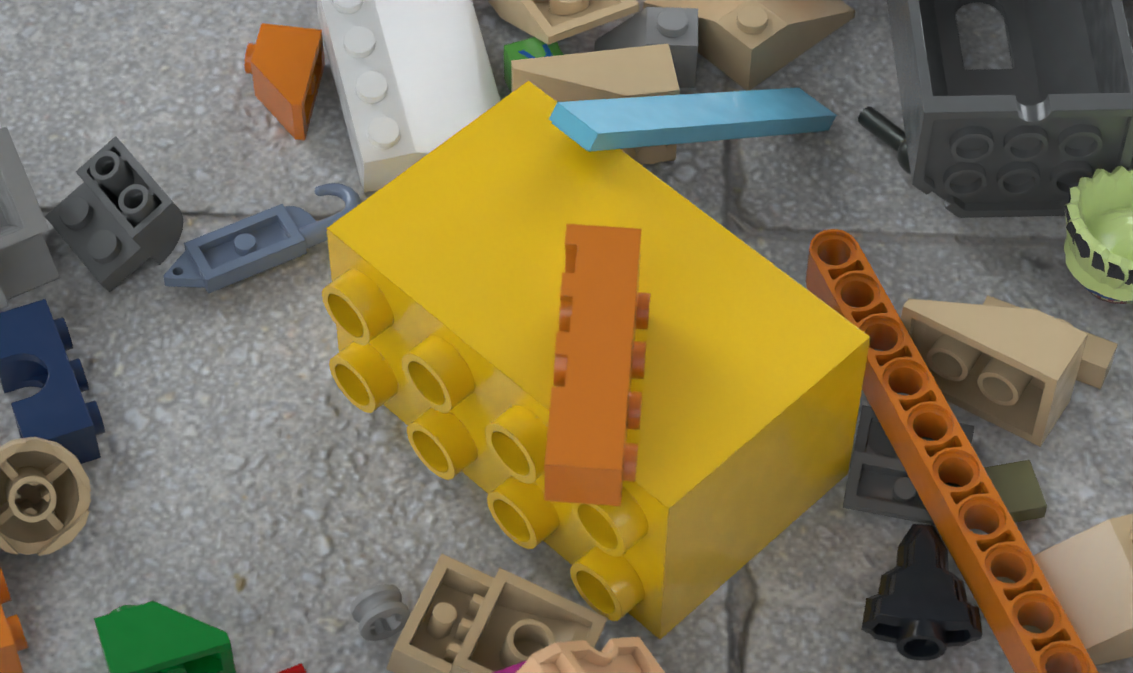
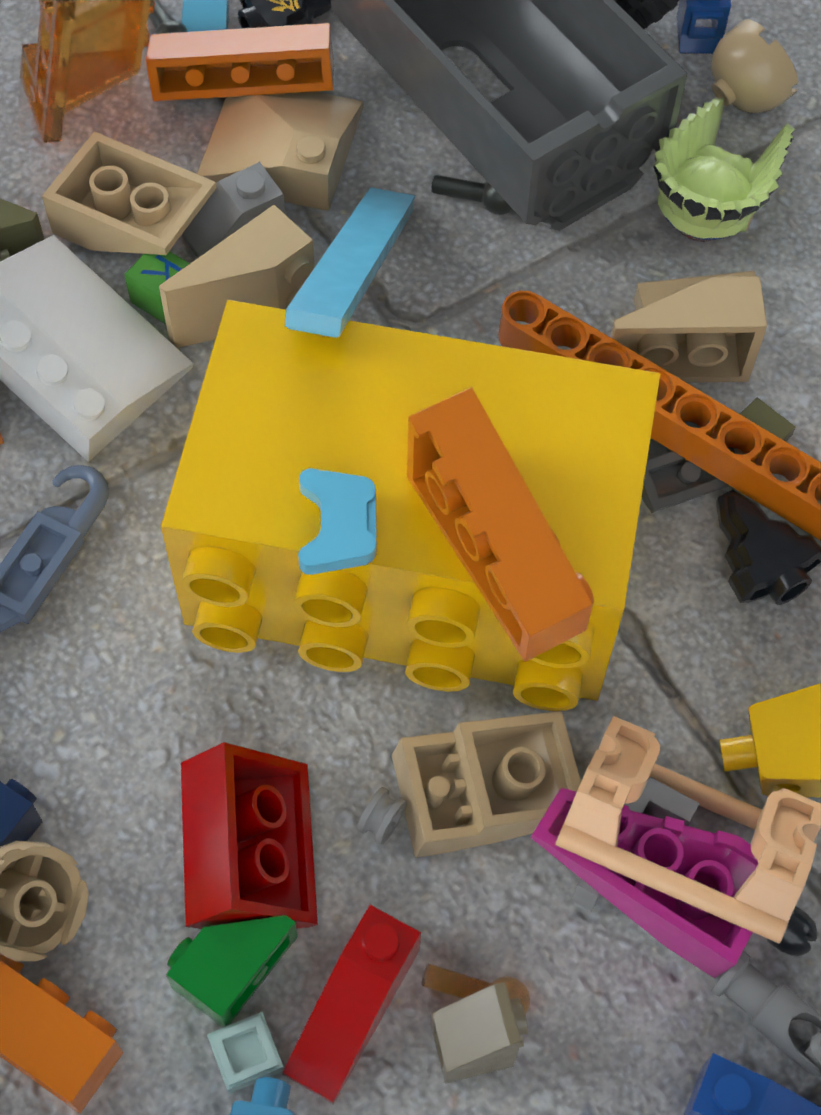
camera: 35 degrees left, 10 degrees up
(253, 560) = (246, 838): none -> red slope
(473, 302) = (347, 521): none -> medium azure piece

